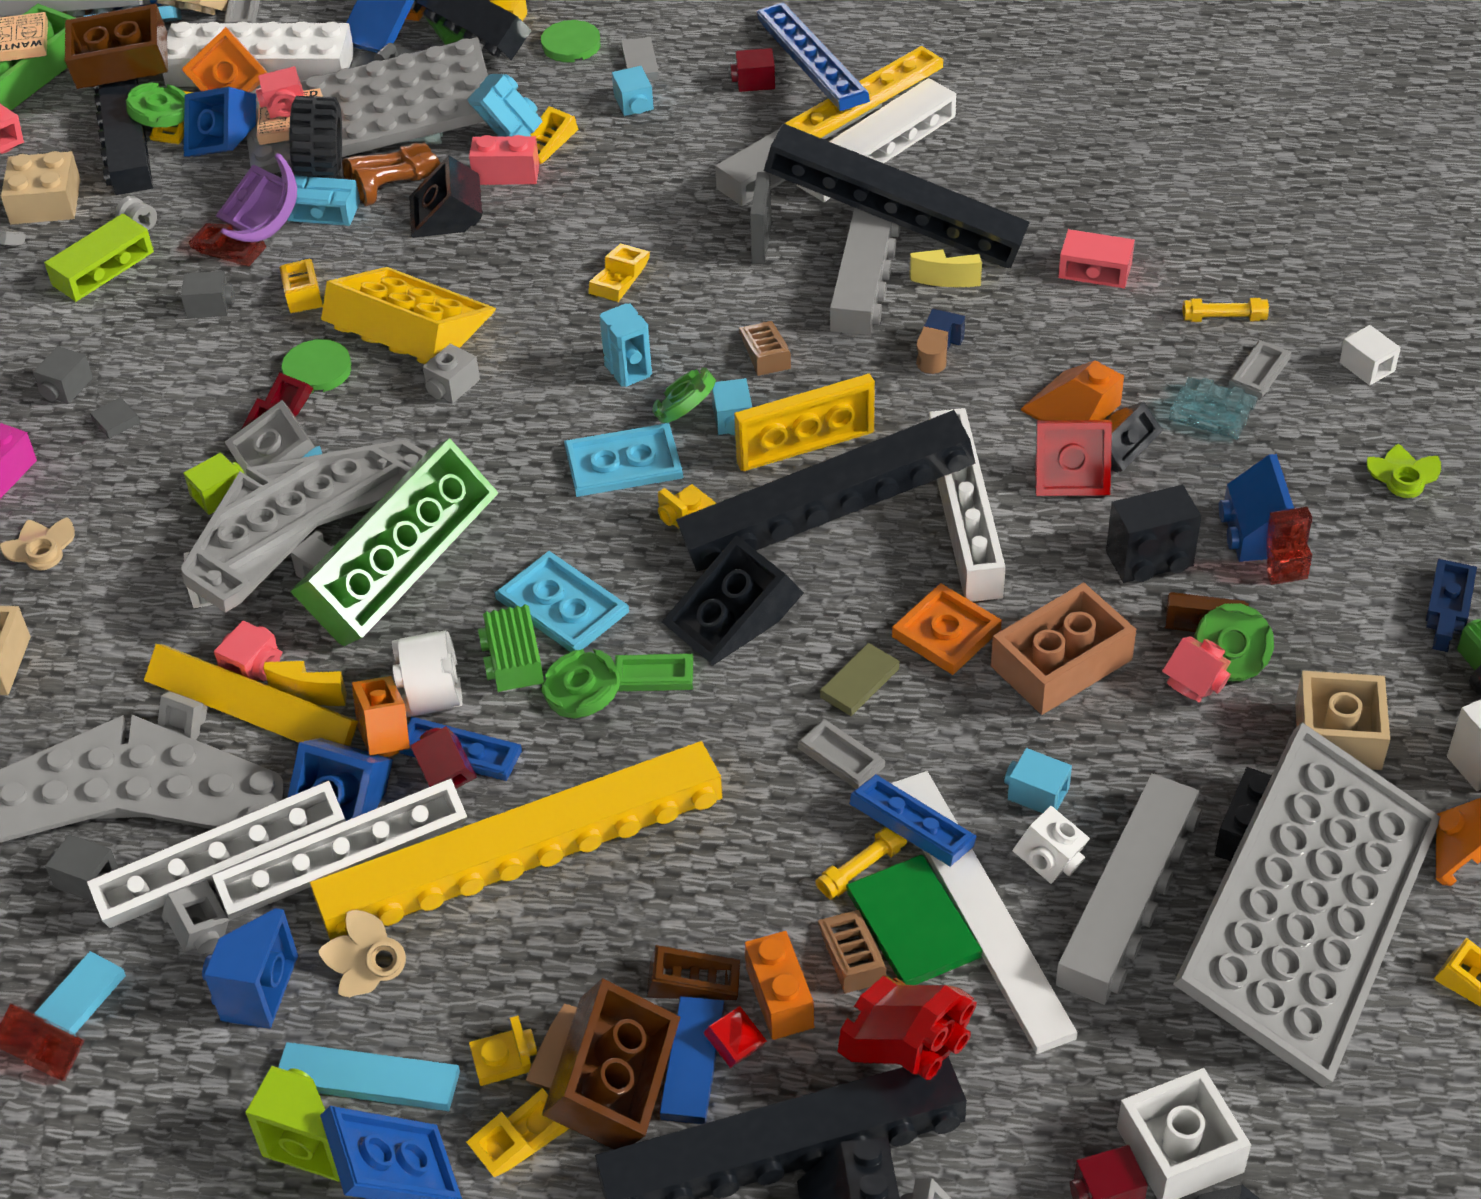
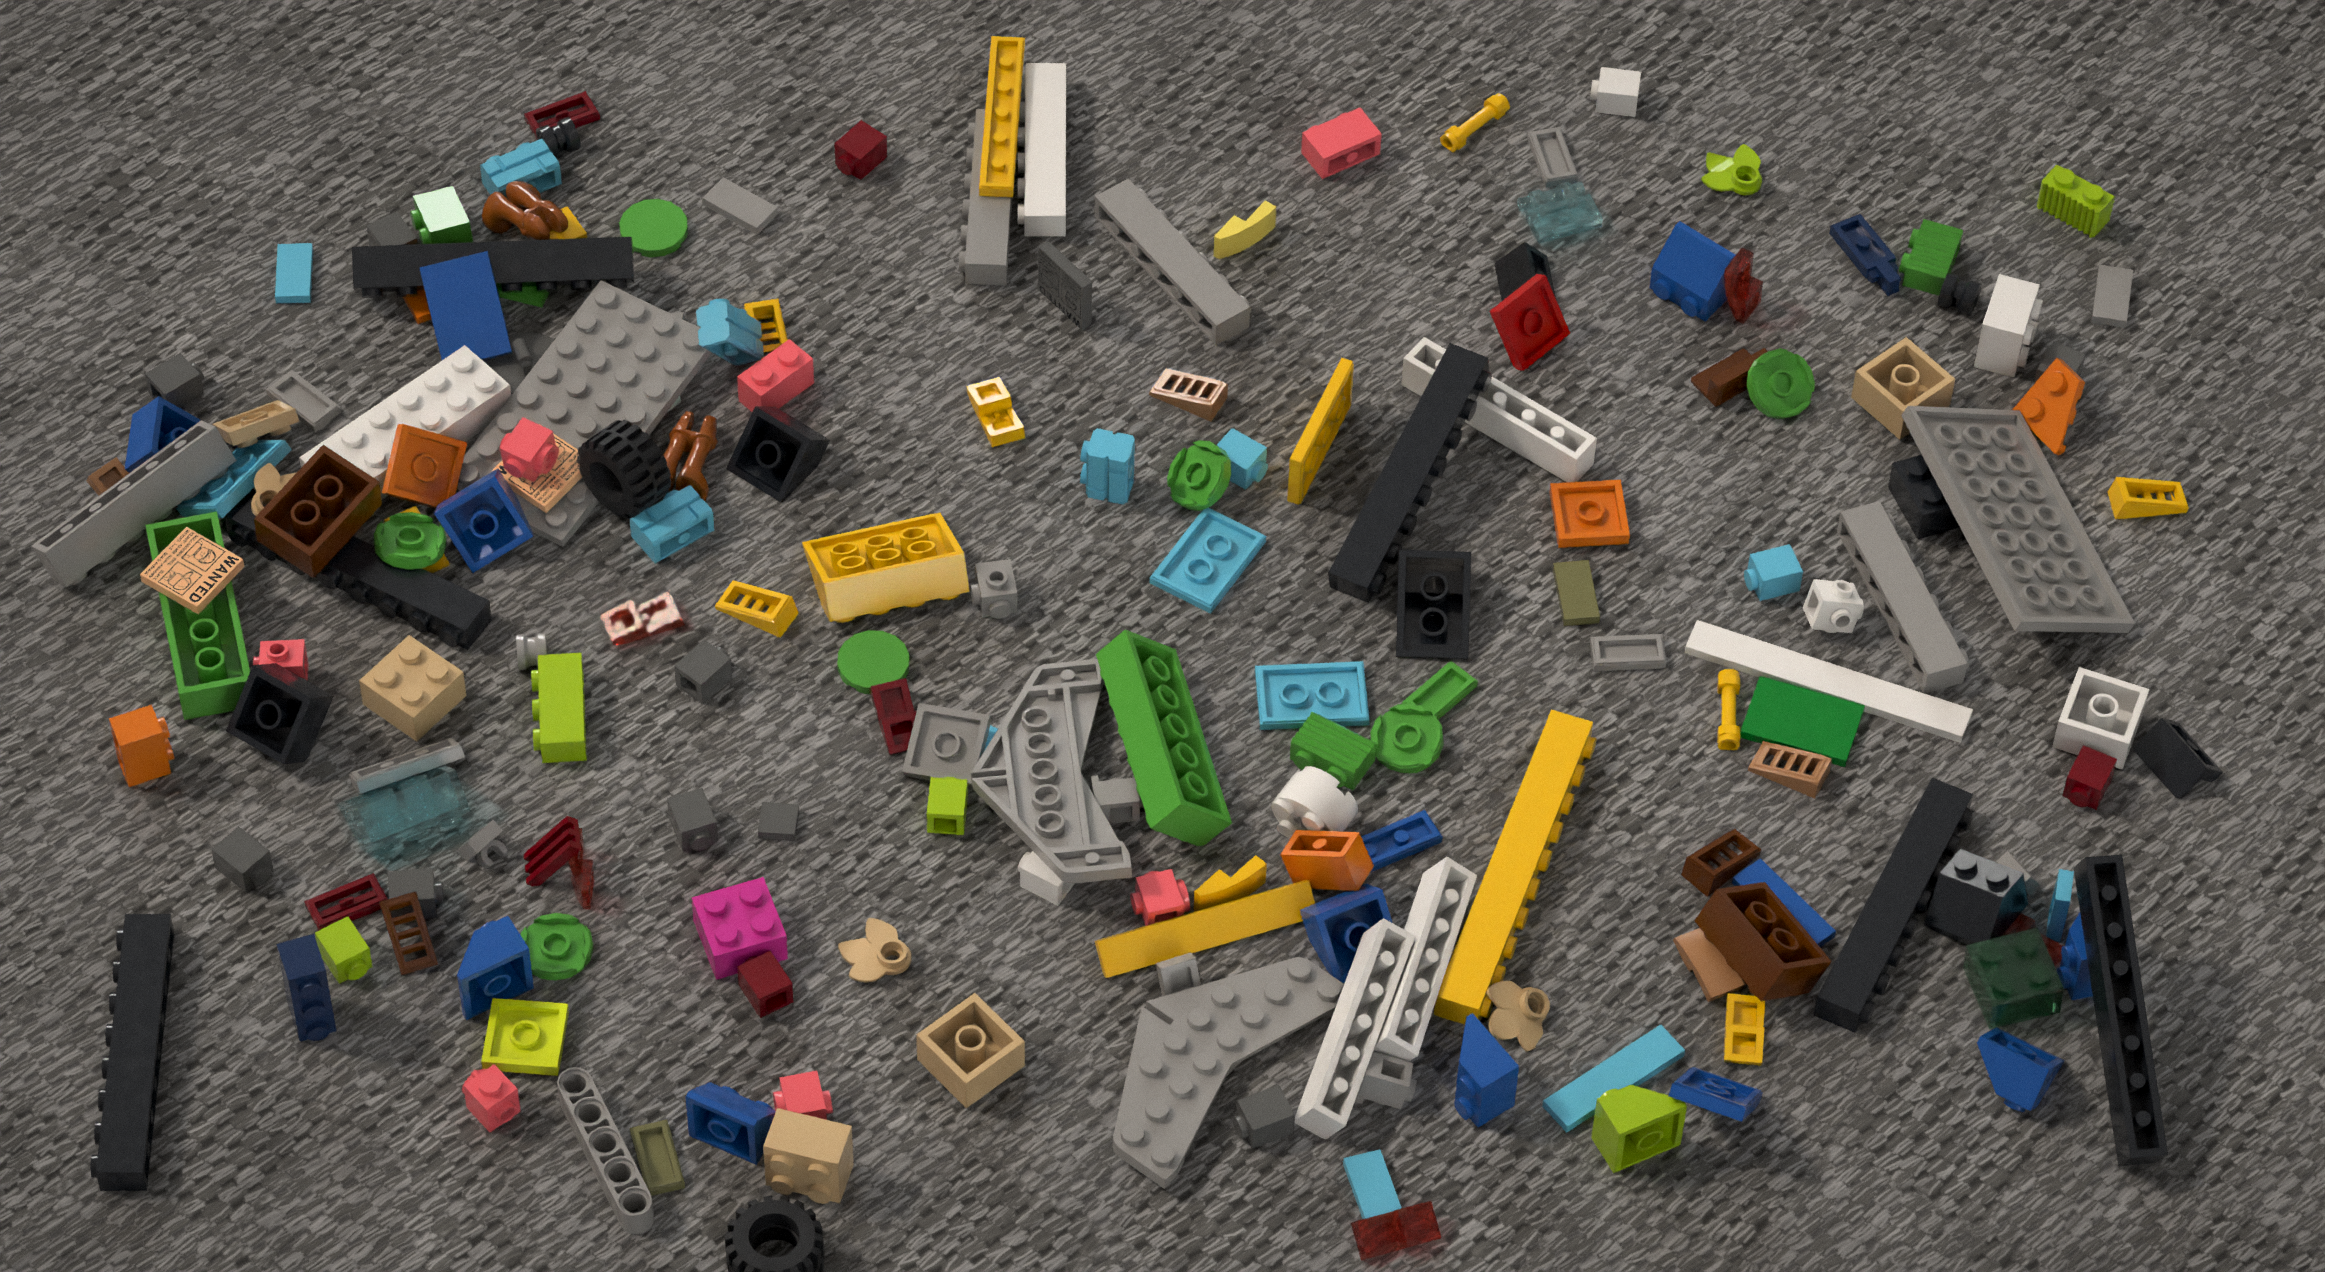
camera: 50 degrees left, 5 degrees up
(260, 203) = (640, 562): medium lavender piece -> none
(442, 758) = (1401, 856): dark red brick -> none
(503, 1054) = (1676, 994): yellow bracket -> none
(632, 90) = (787, 240): medium azure brick -> none
(683, 503) = (1304, 561): yellow bracket -> none
(735, 1037) = (1795, 872): red tile -> none
(779, 985) = (1784, 820): orange brick -> none
(813, 57) = (904, 105): blue tile -> none
(896, 196) = (1154, 193): black brick -> none
(907, 1026) = (1904, 775): red brick -> none
(912, 820) = (1734, 656): blue tile -> none
(935, 339) = (1310, 296): leg -> none
(1062, 648) = (1686, 469): nougat brick -> none
(1078, 394) = (1462, 272): orange slope -> none
(1153, 534) = (1651, 342): black brick -> none
(1197, 668) = (1781, 419): coral brick -> none

